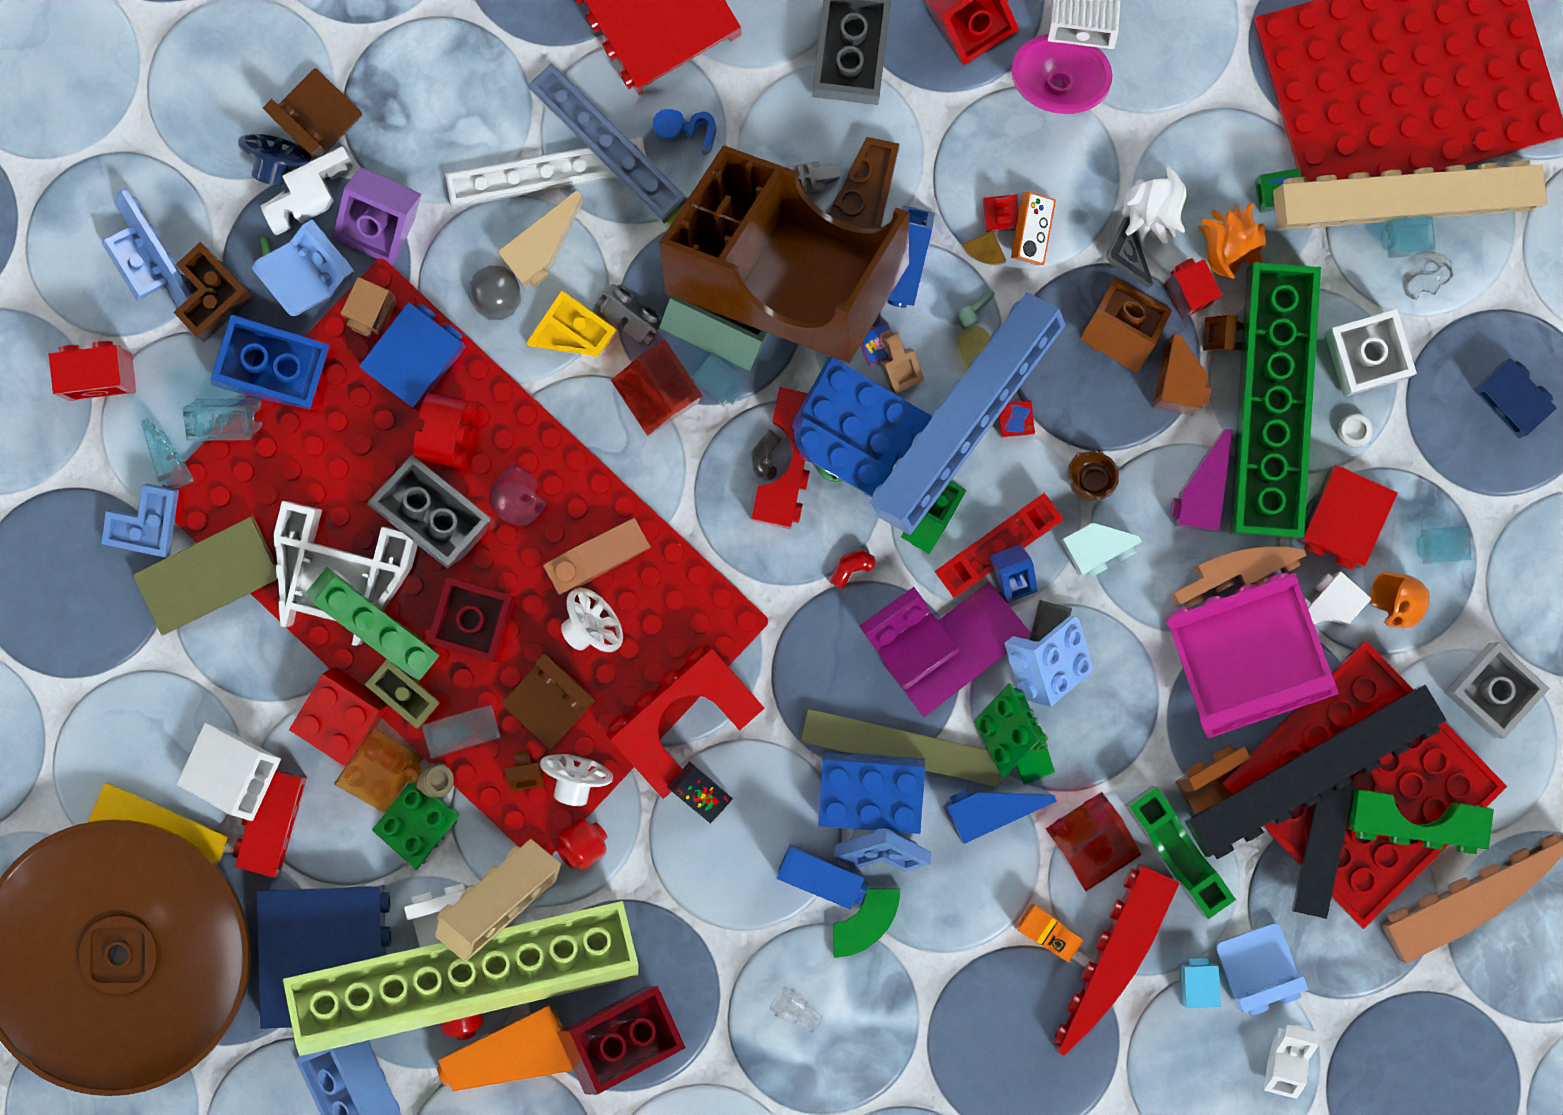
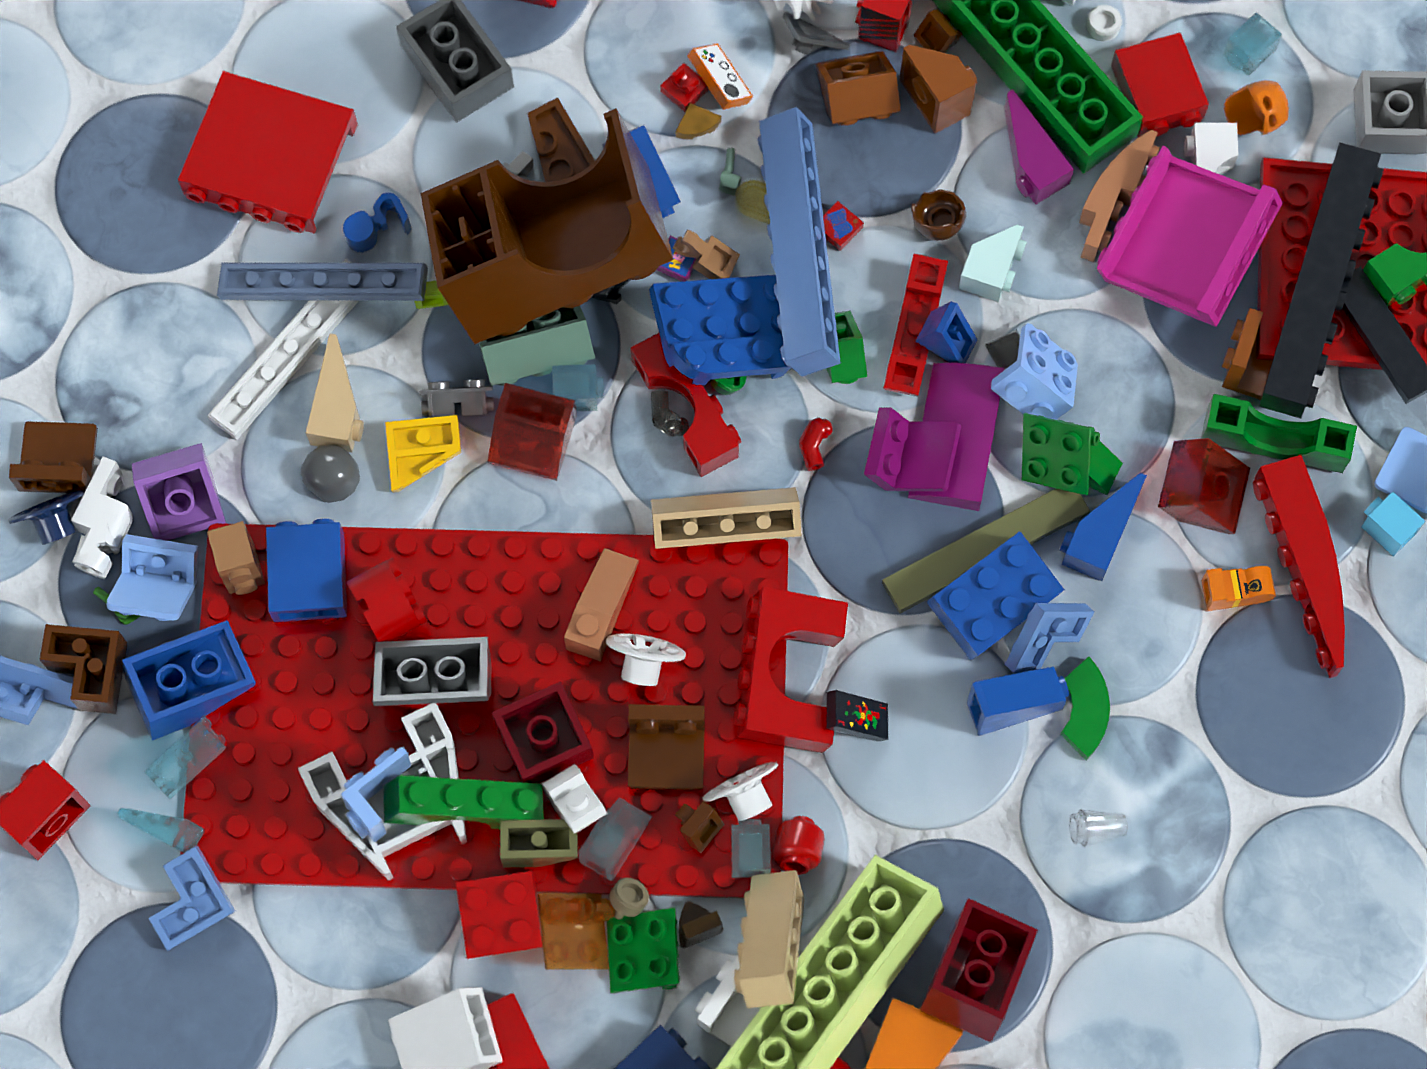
camera: 40 degrees left, 15 degrees down
(207, 576) = (283, 898): olive tile -> none
(291, 578) = (363, 787): none -> light blue bracket
(450, 687) = (573, 799): none -> white brick
(467, 837) = (697, 925): none -> dark brown tile
(515, 497) = (491, 613): clear pink helmet -> none
(544, 821) = (750, 848): none -> clear light blue brick
(736, 571) = (726, 517): none -> tan brick

